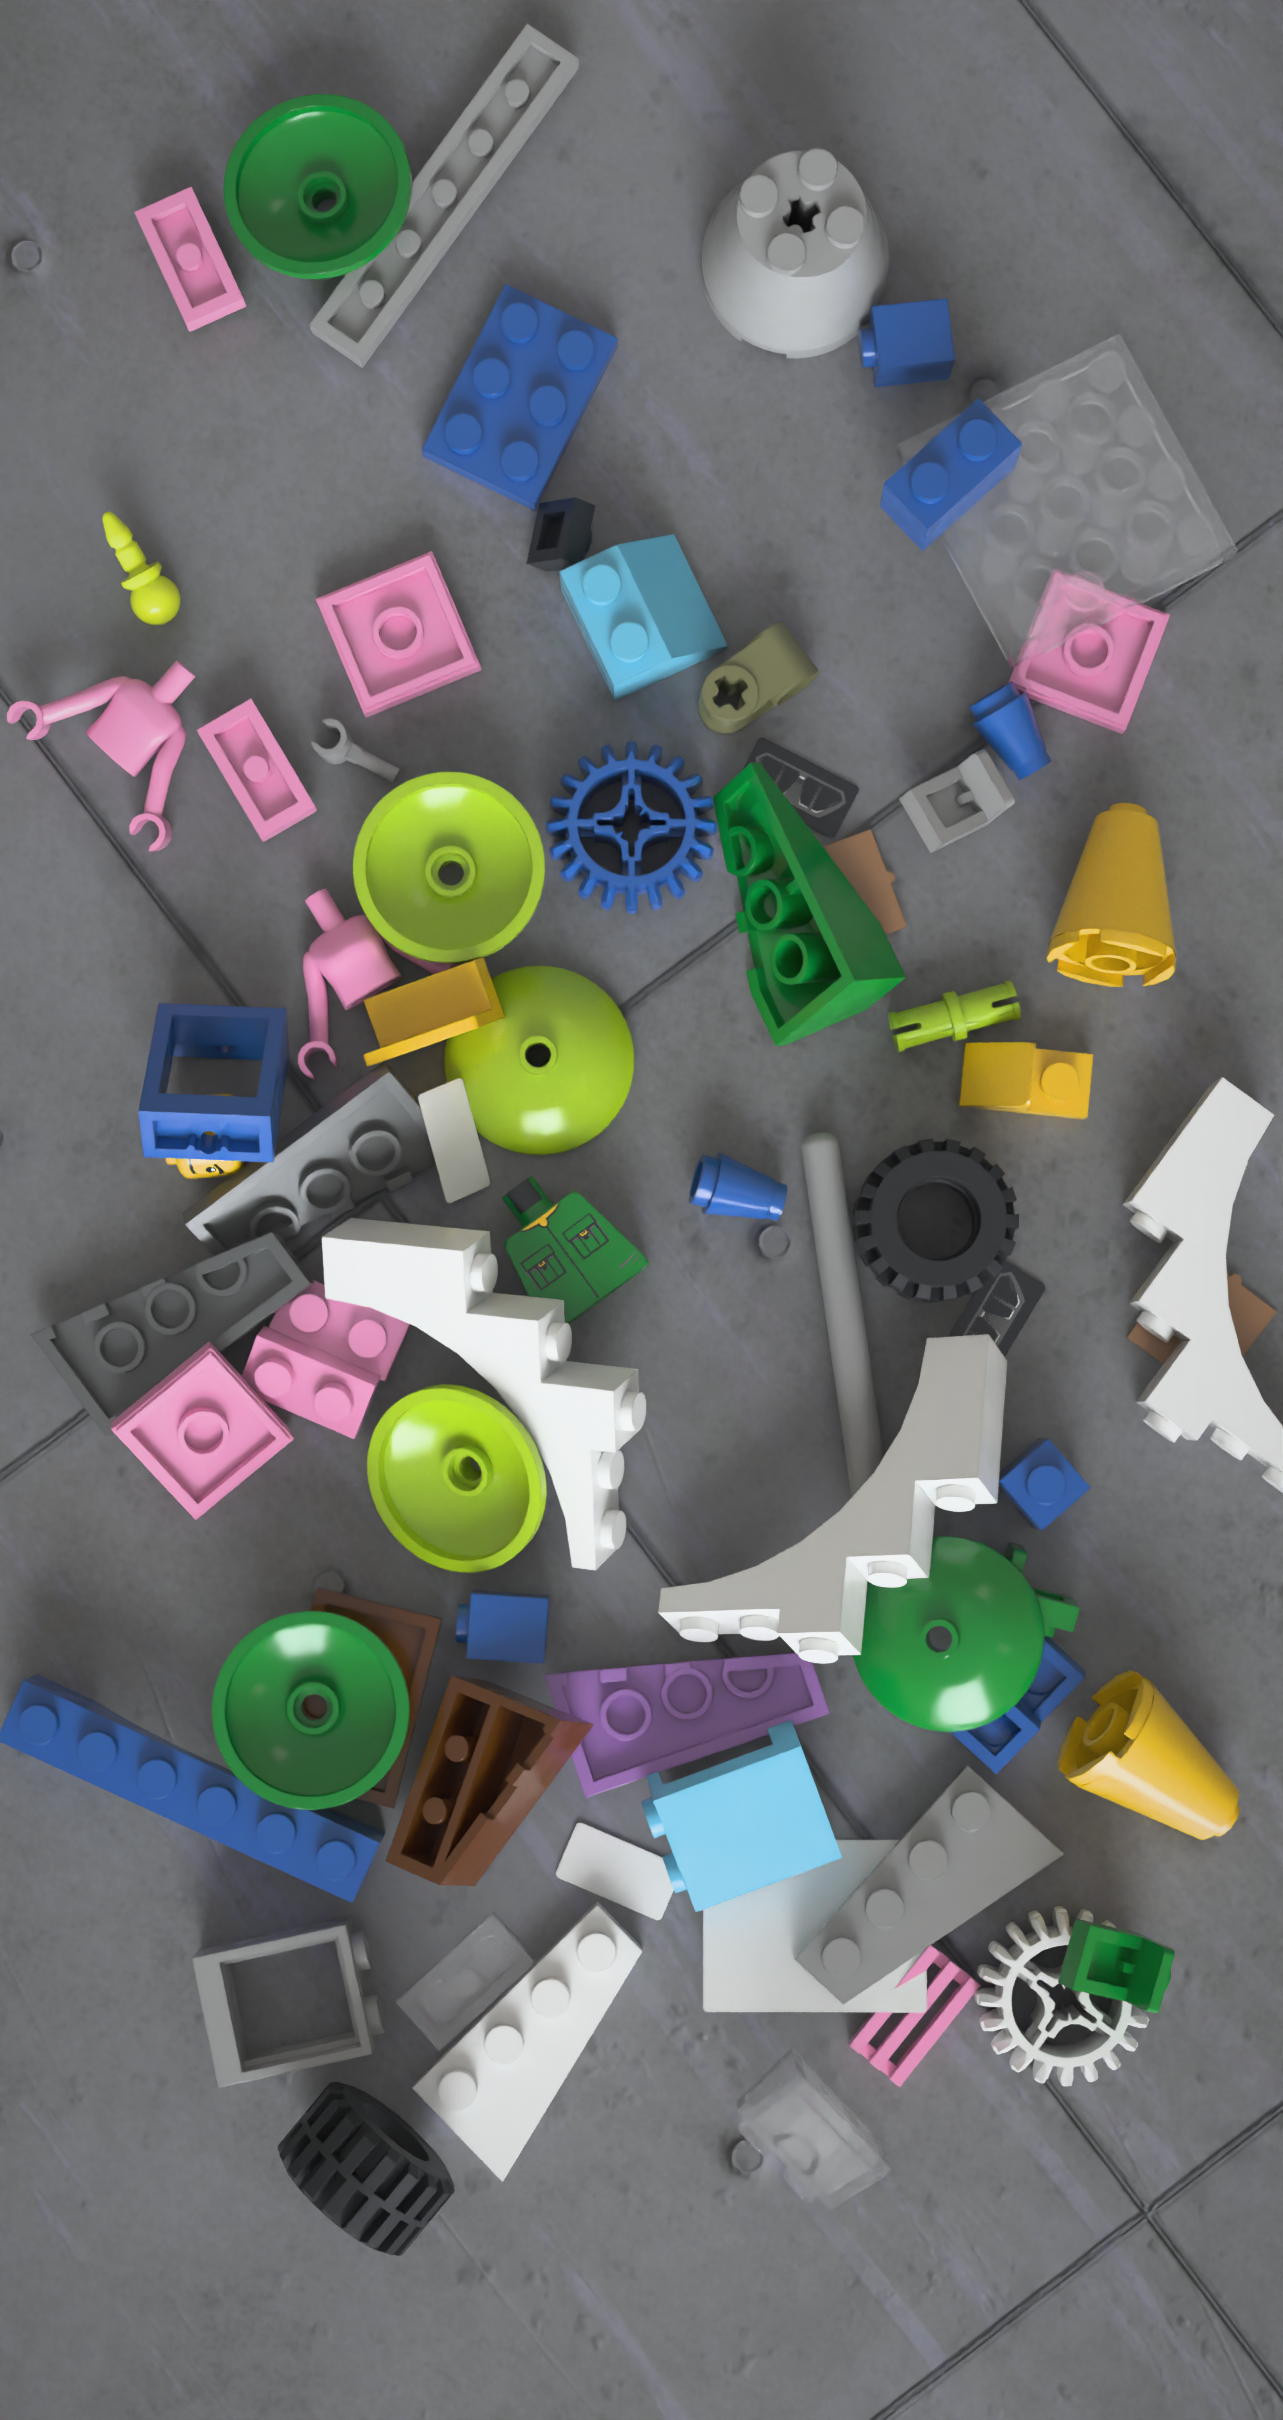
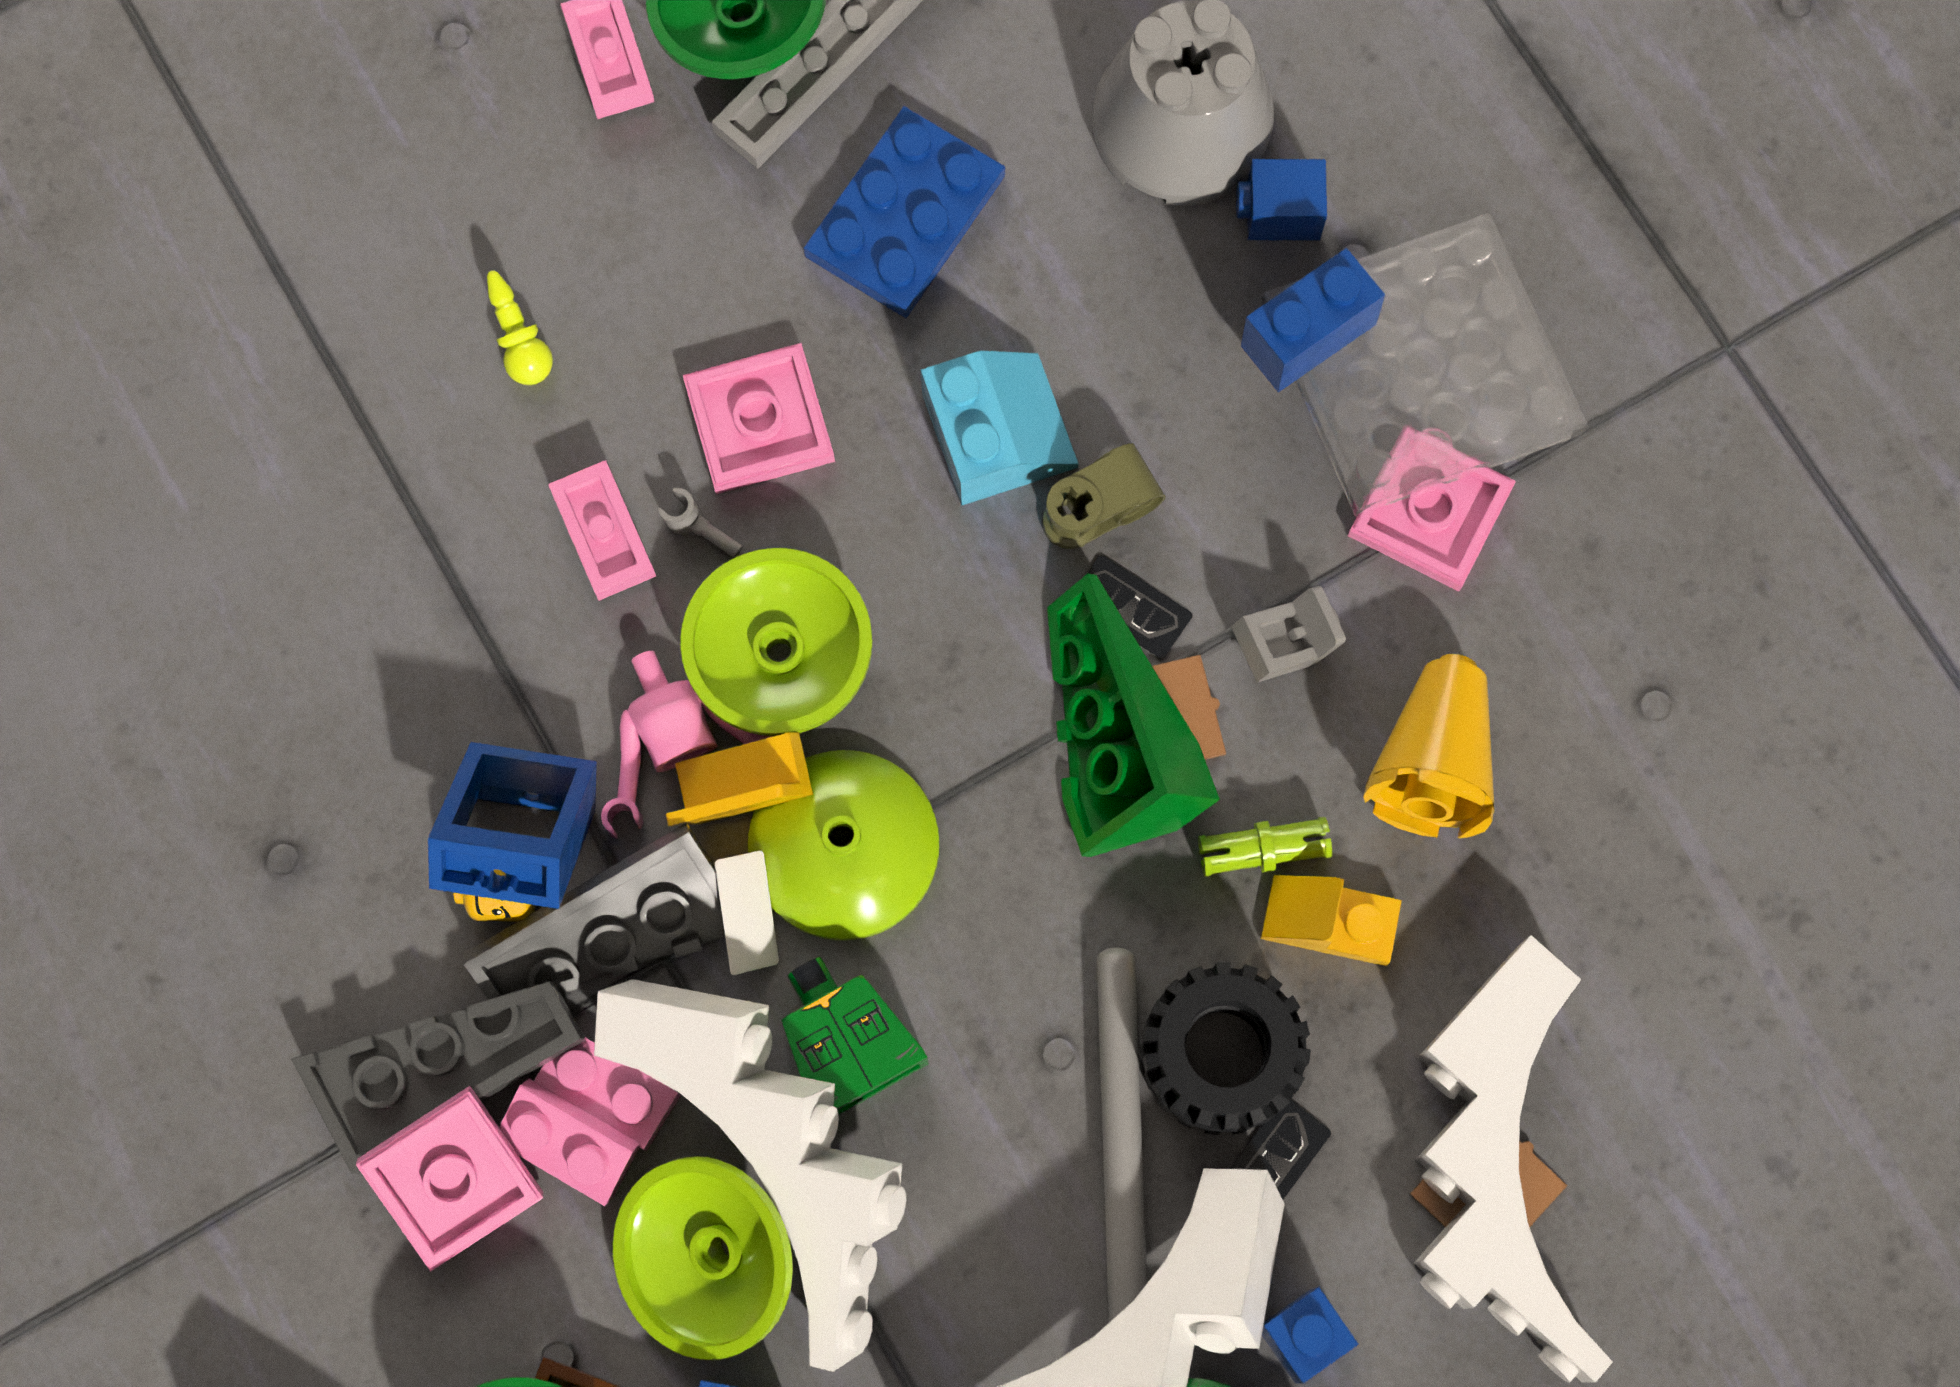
camera: 10 degrees right, 10 degrees down
(129, 731) = (484, 479): bright pink piece -> none
(561, 534) = (928, 338): black plate -> none
(661, 827) = (967, 573): blue gear -> none
(735, 1189) = (1025, 995): blue cone -> none
(1011, 729) = (1349, 572): blue cone -> none

